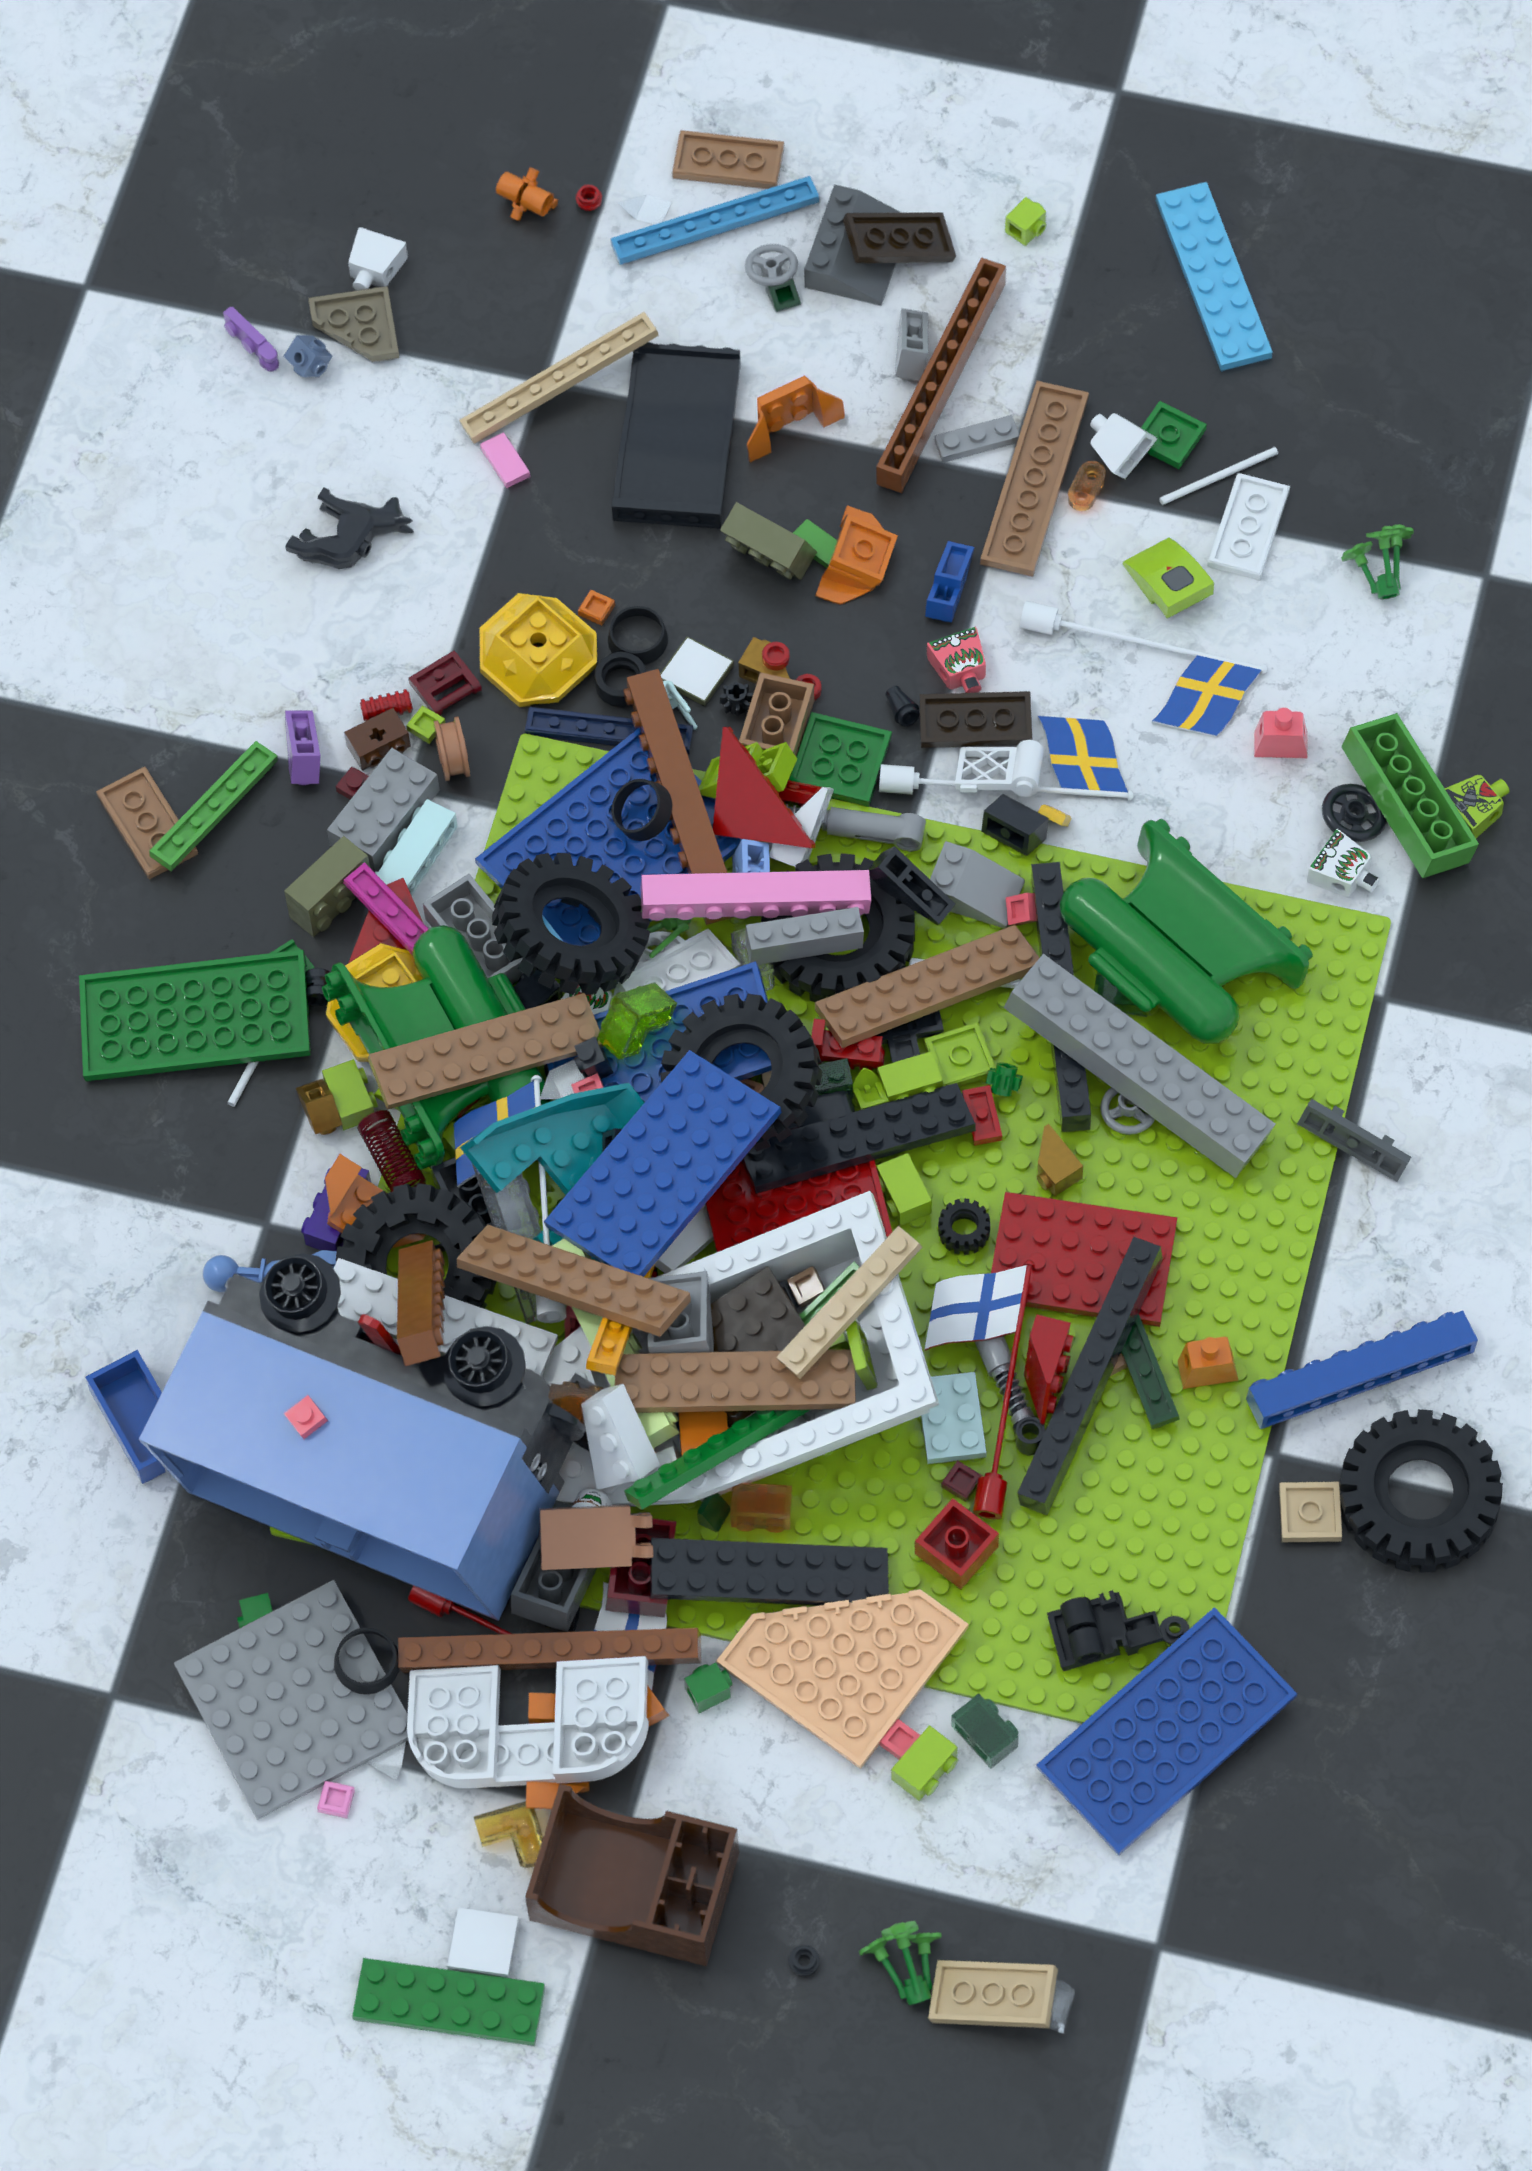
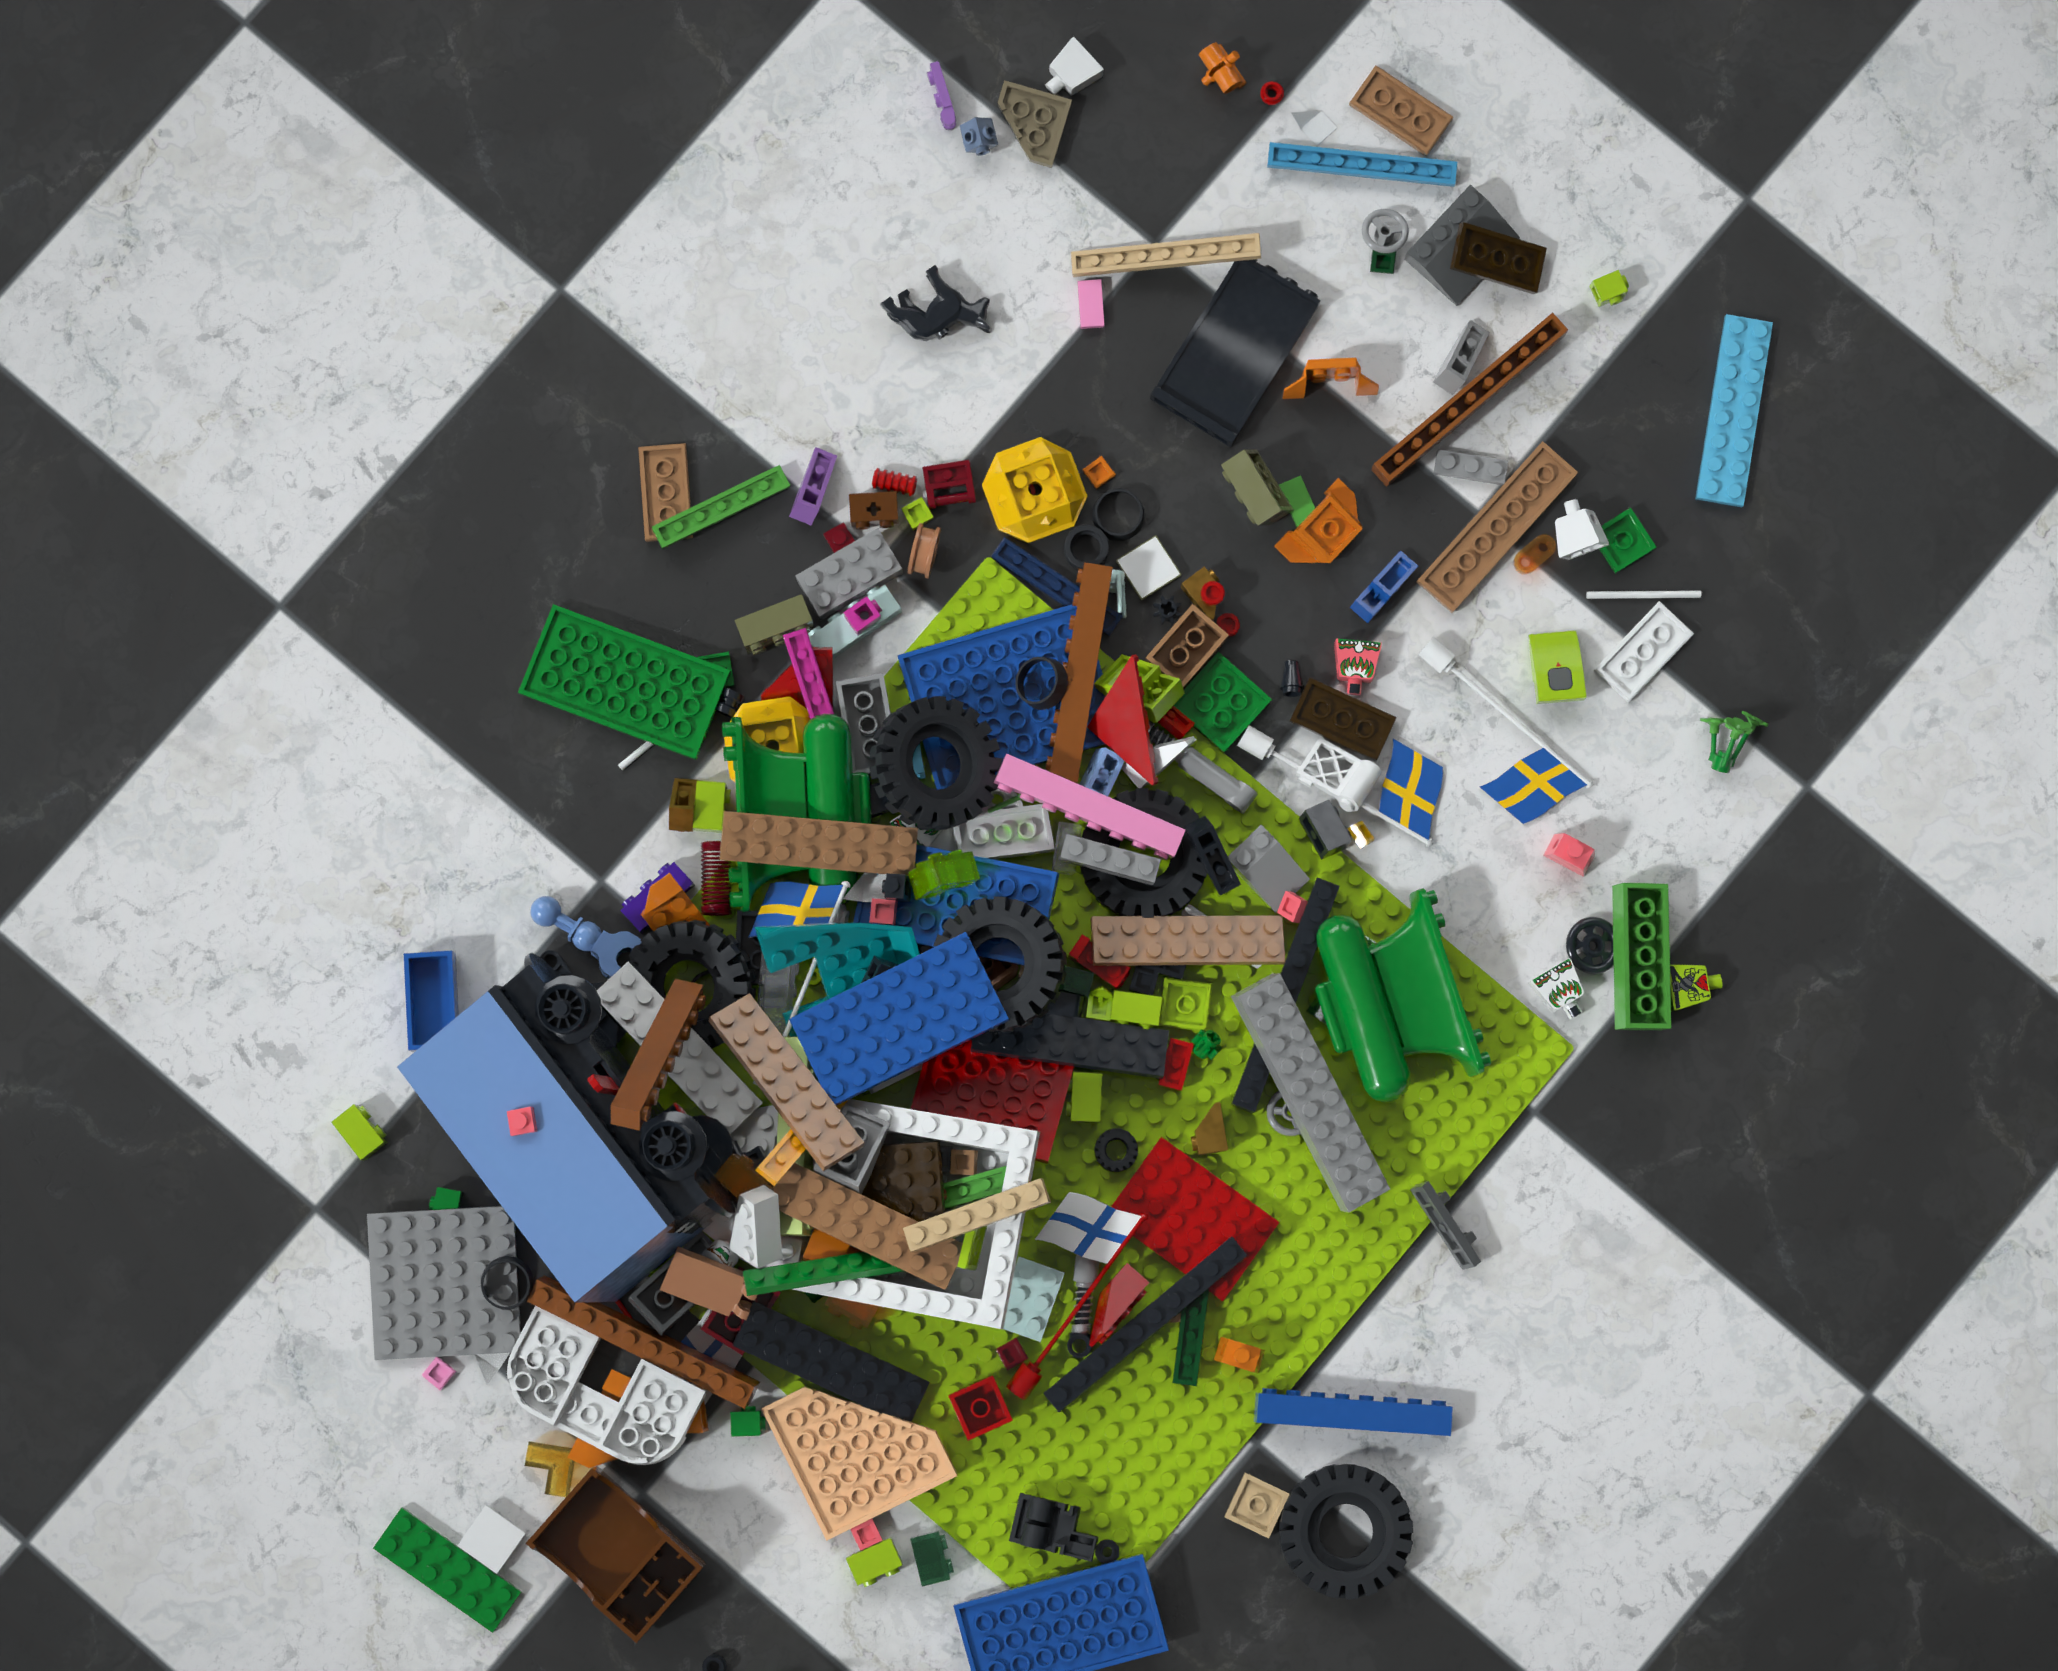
camera: 20 degrees right, 20 degrees up
(123, 1588) = (359, 1131): none -> lime brick
(410, 834) = (852, 615): none -> dark pink brick

